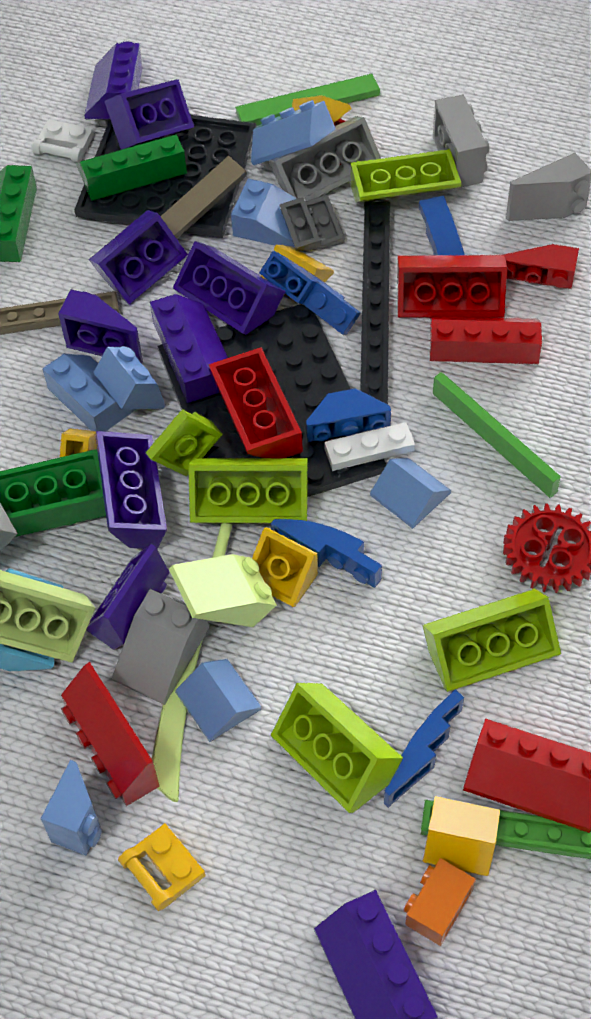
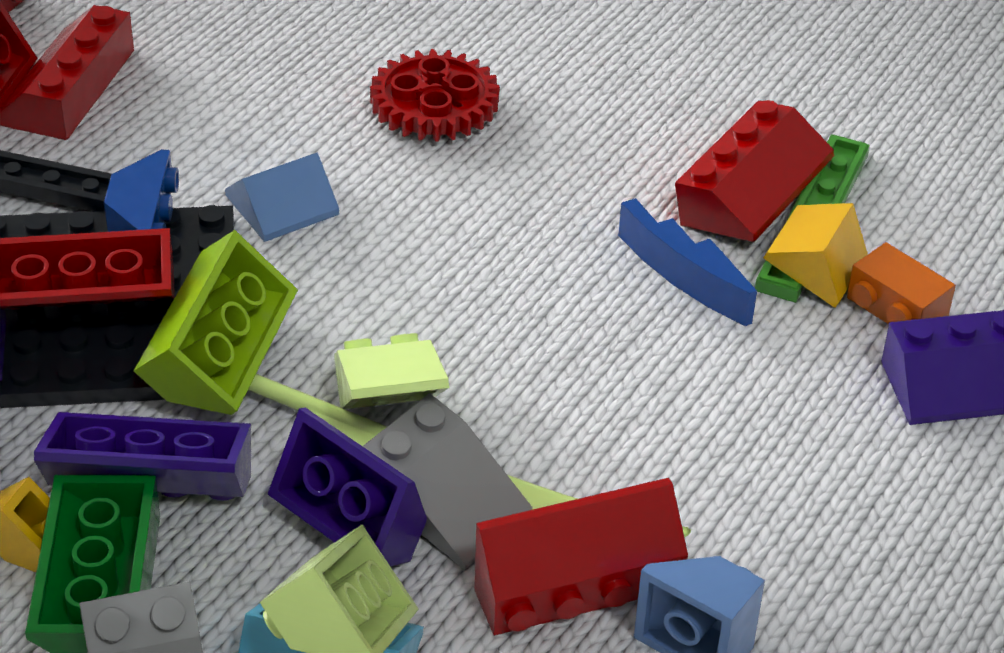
camera: 80 degrees left, 15 degrees down
(170, 859) = (789, 544): yellow plate -> none
(182, 440) = (97, 368): lime plate -> none
(217, 698) = (550, 447): medium blue slope -> none
(285, 566) = (351, 313): yellow slope -> none
(335, 746) = (671, 326): lime slope -> none
(336, 546) = (337, 284): blue slope -> none
(369, 446) = (199, 203): white plate -> none
(492, 639) = (546, 171): lime slope -> none
(496, 435) = (233, 99): bright green tile -> none

